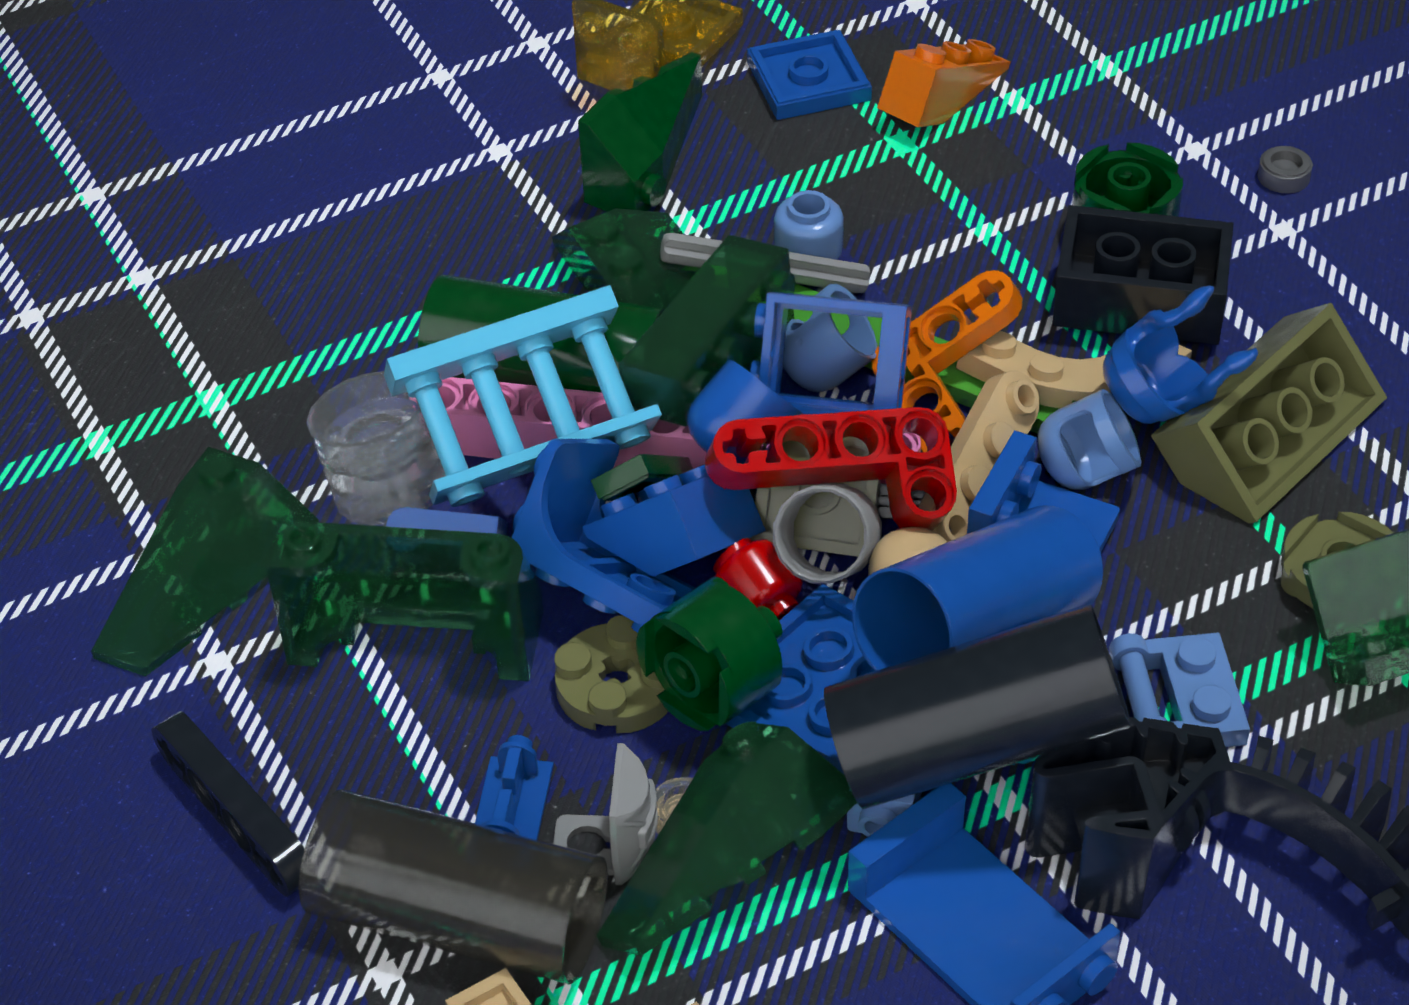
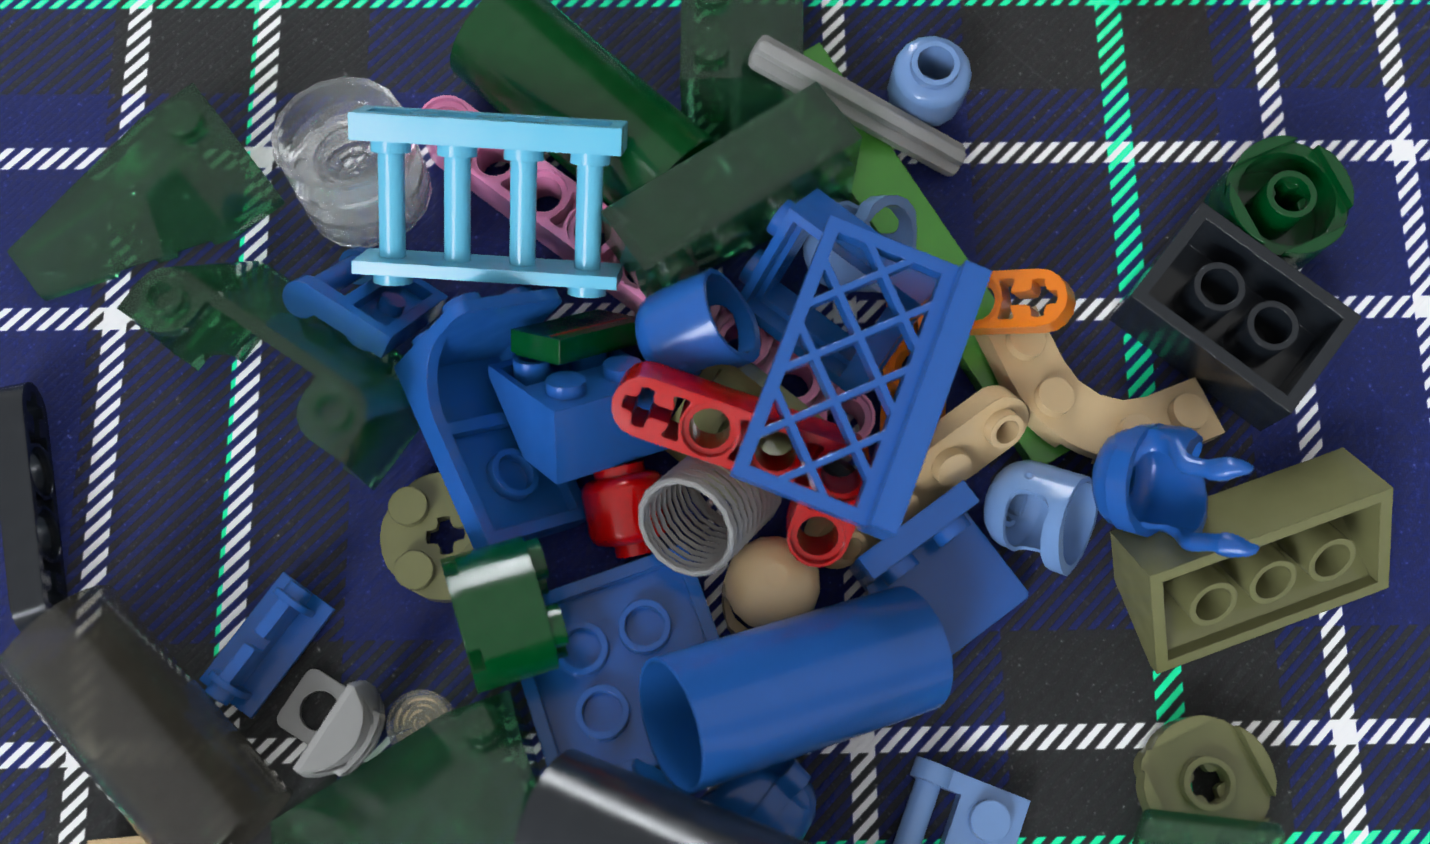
camera: 20 degrees right, 30 degrees up
(946, 361) = (919, 395): none -> blue fence

